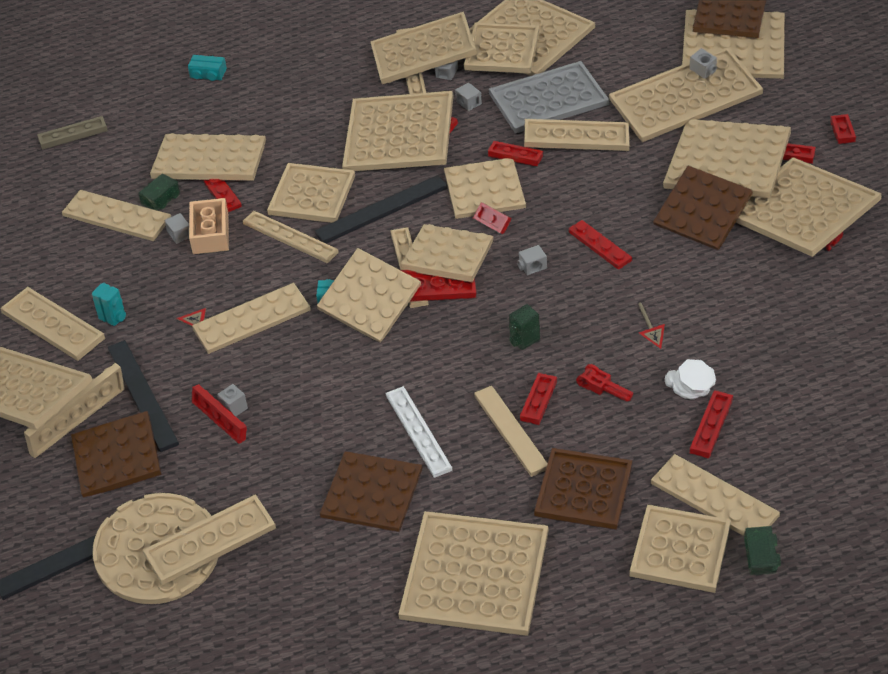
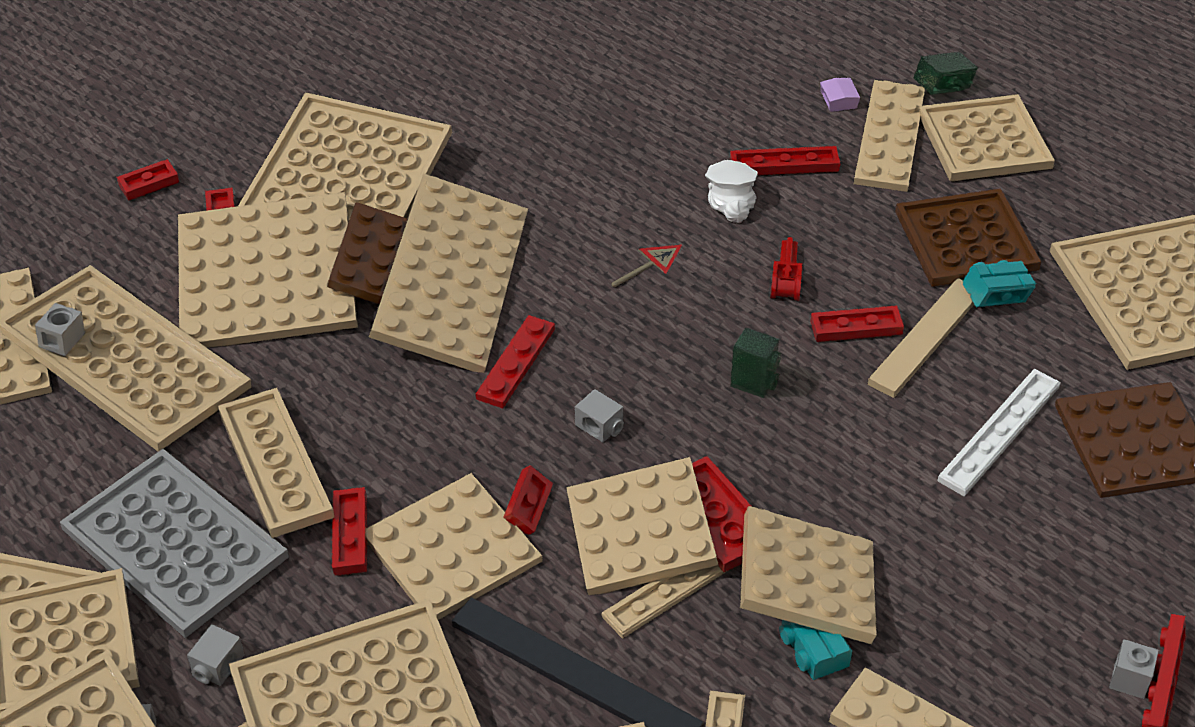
camera: 120 degrees left, 0 degrees up
(524, 474) = (998, 283): none -> teal brick
(683, 228) = (450, 274): none -> tan plate
(772, 484) = (840, 94): none -> lavender piece

